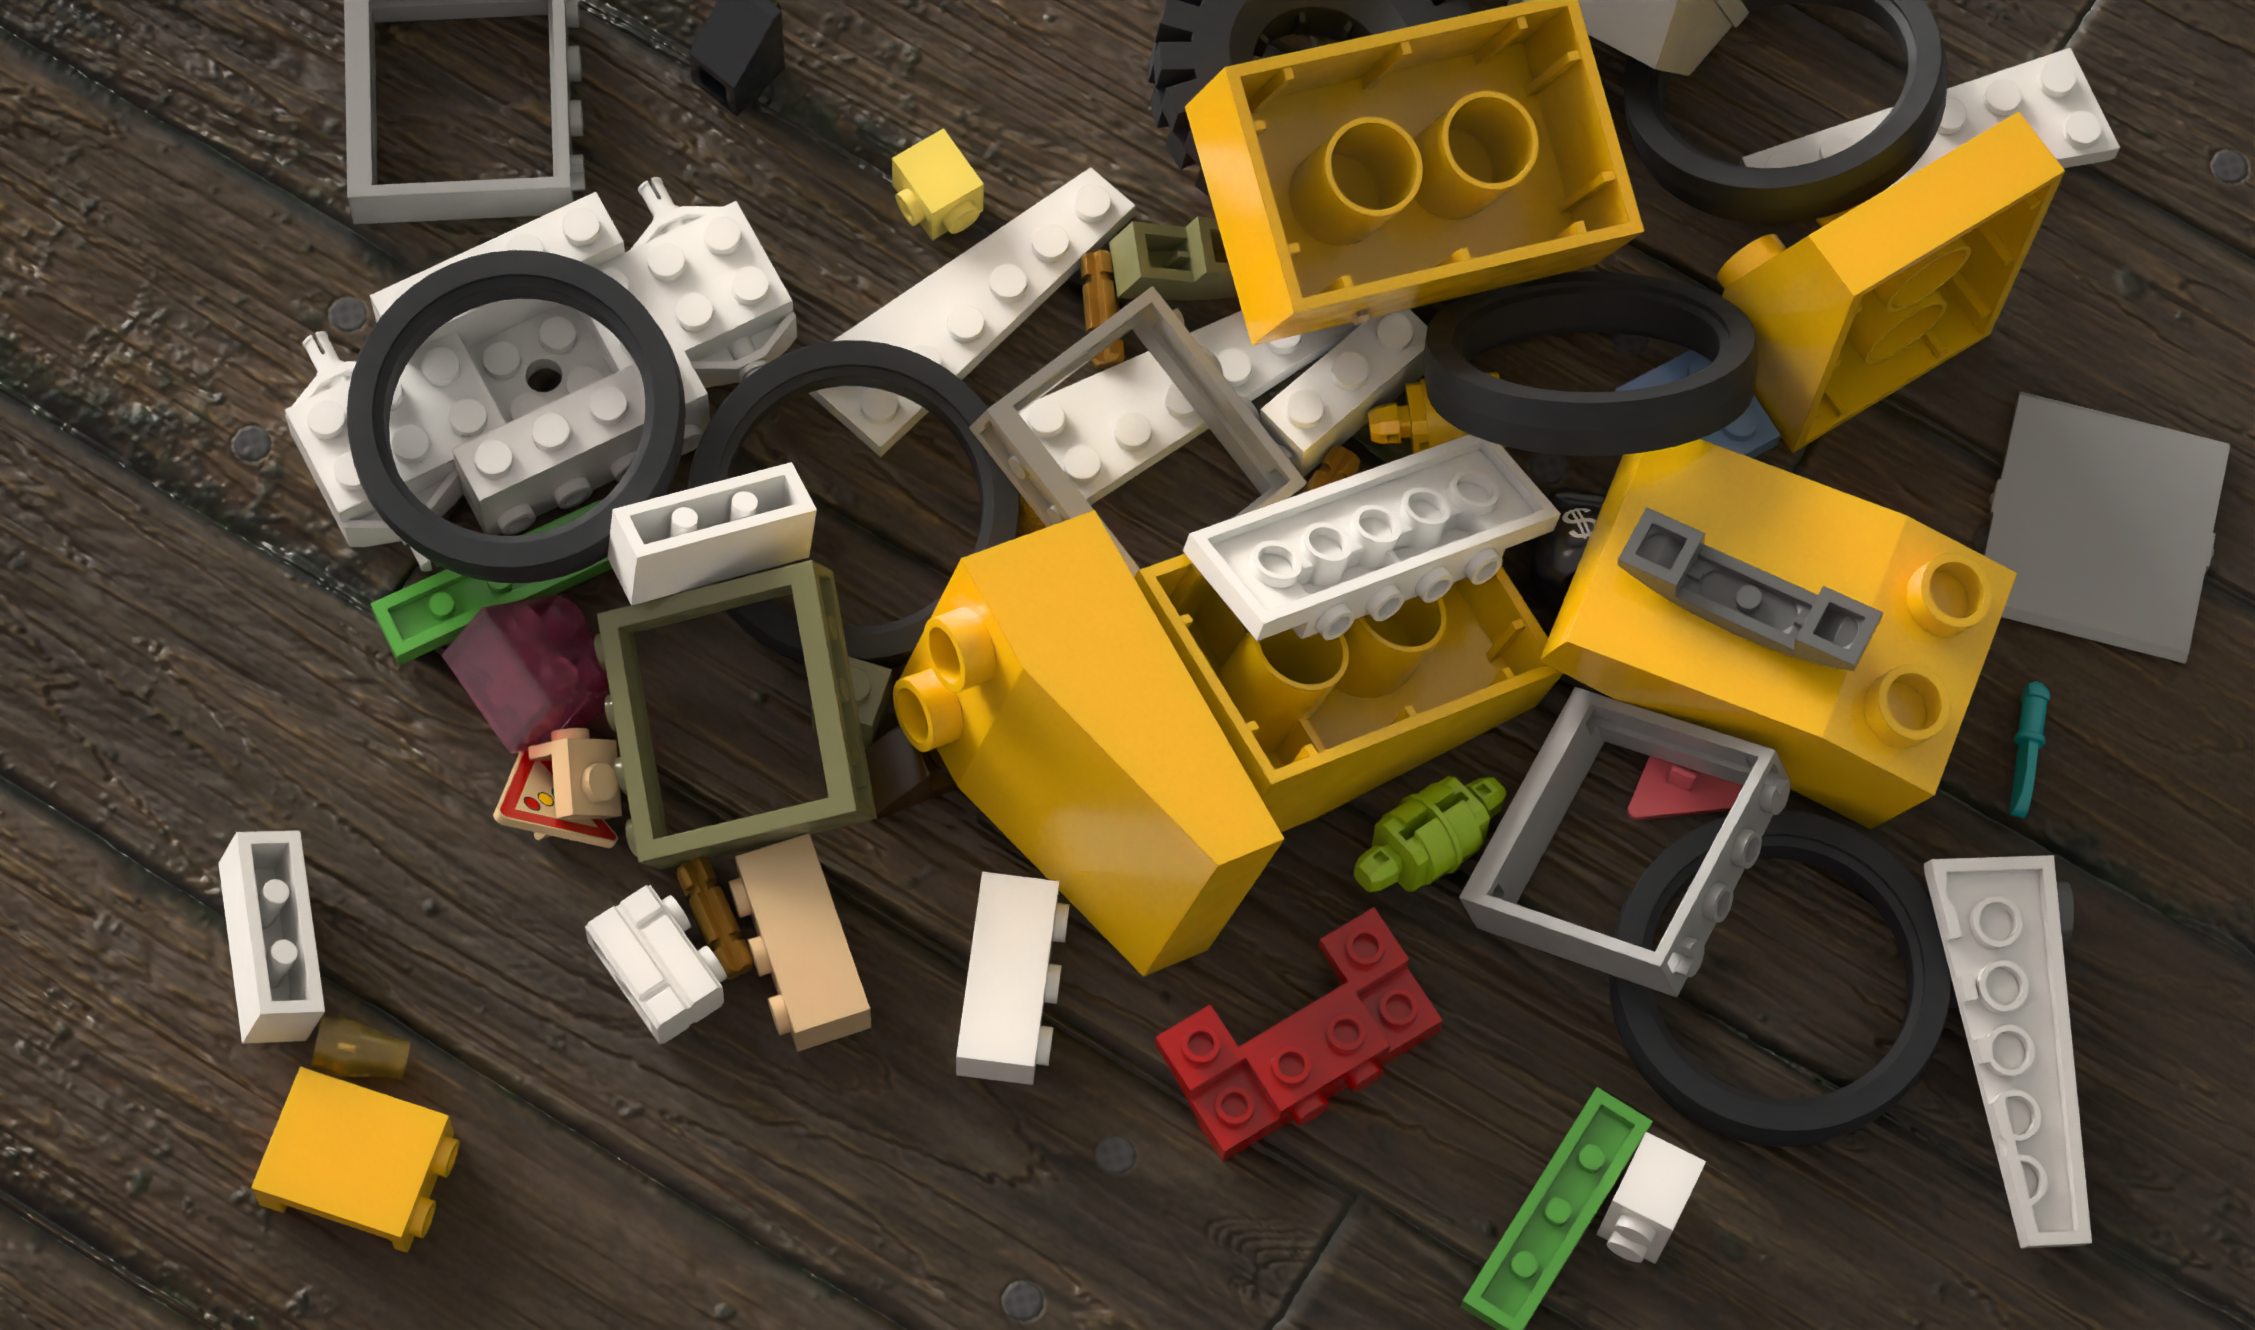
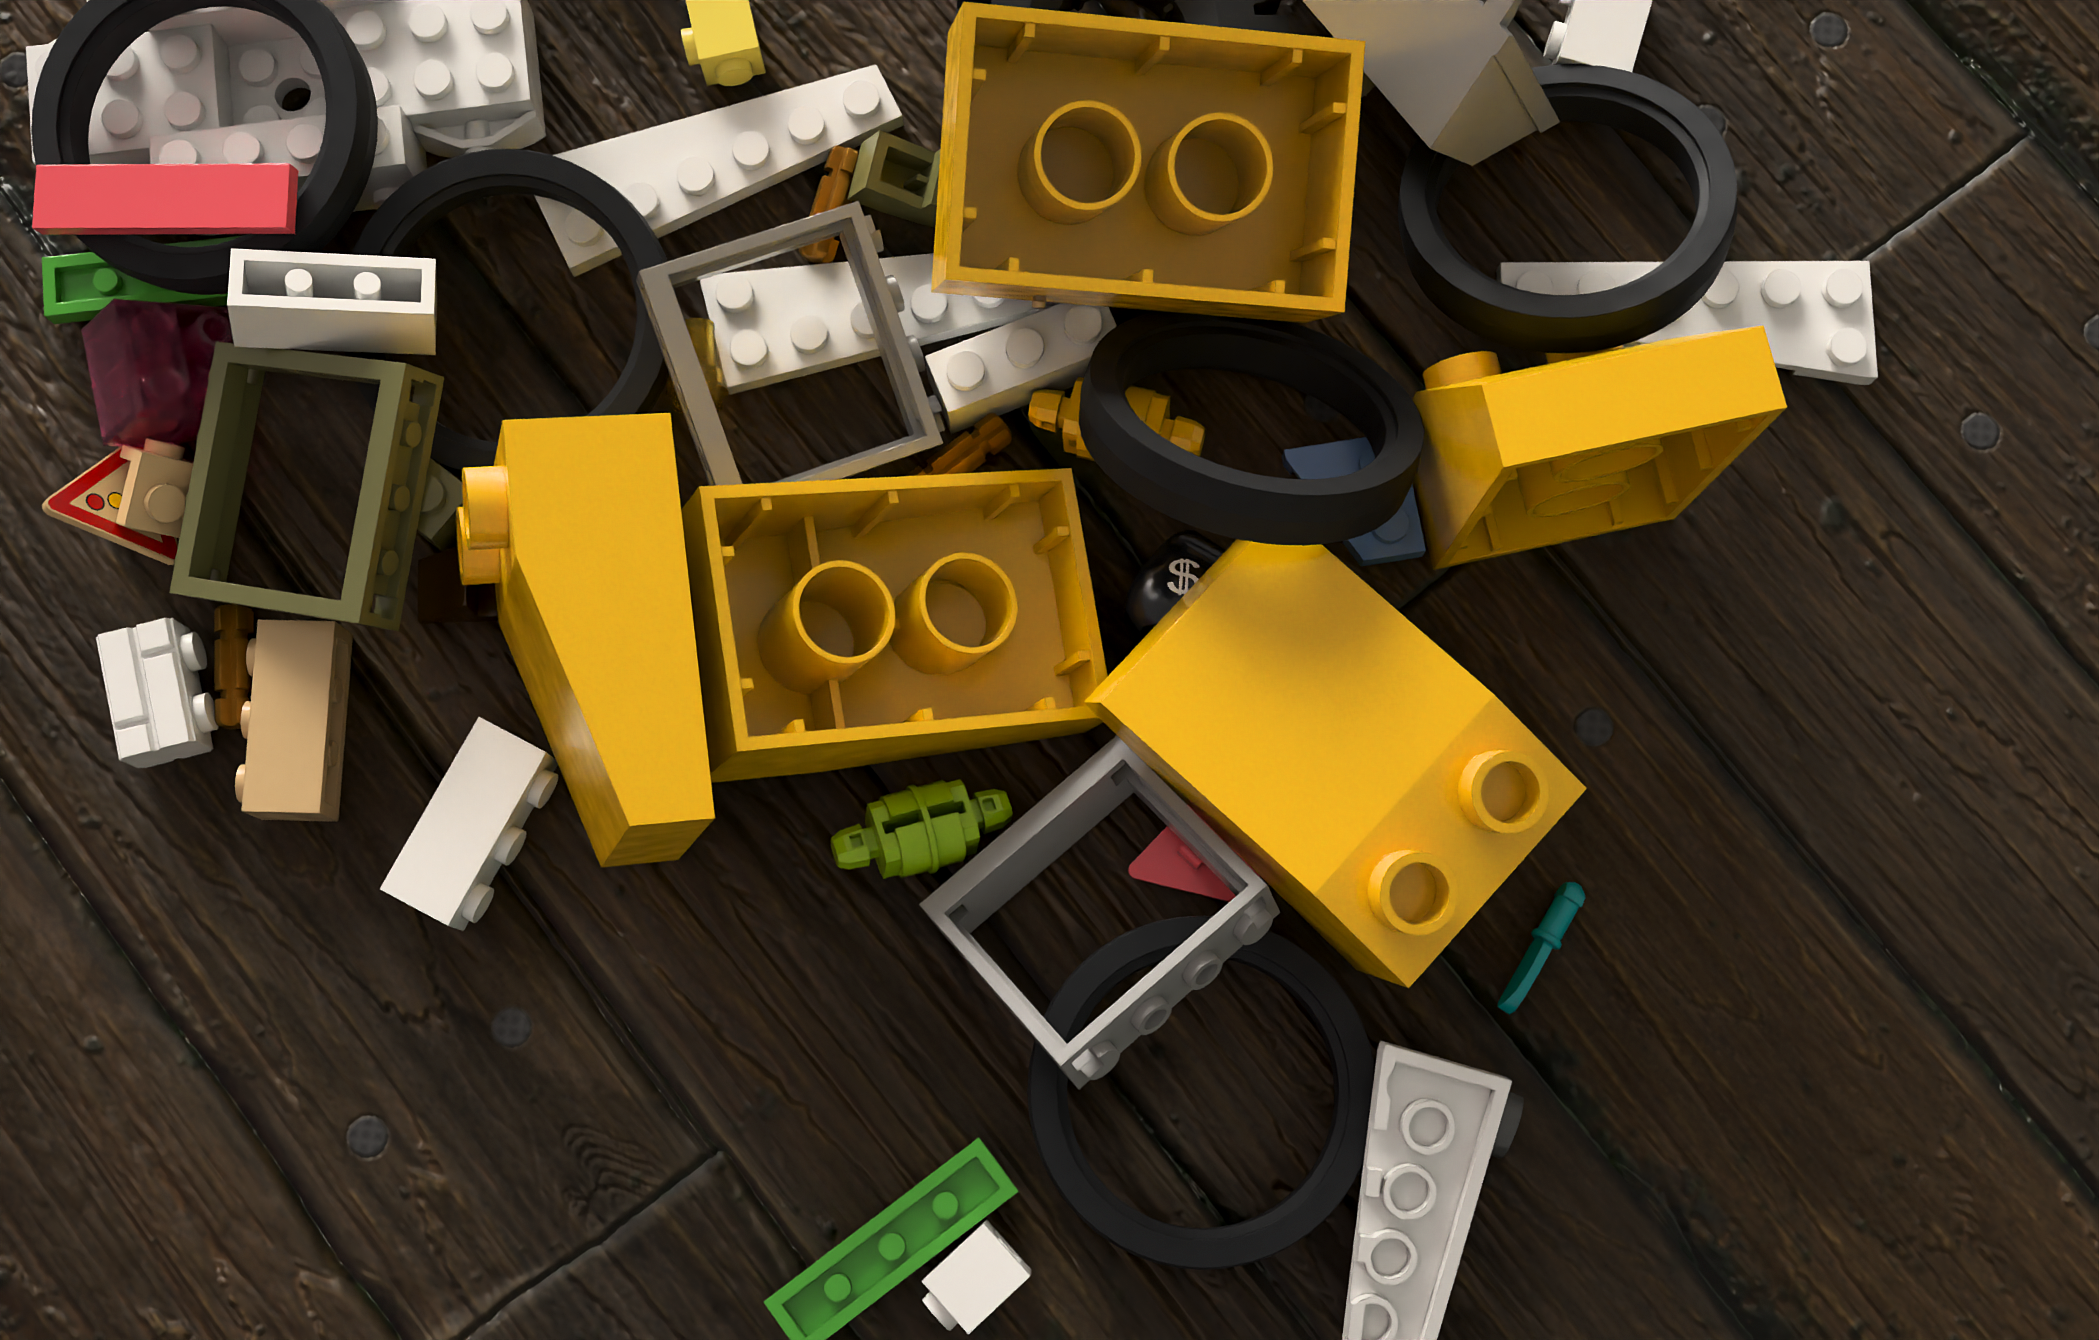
camera: 25 degrees right, 10 degrees up
(522, 489) = (165, 199): none -> coral tile
(1309, 1055) = (720, 1003): red bracket -> none
(1373, 540) = (951, 531): white plate -> none
(1745, 599) = (1294, 725): dark grey slope -> none
(2105, 525) = (1708, 749): light grey piece -> none

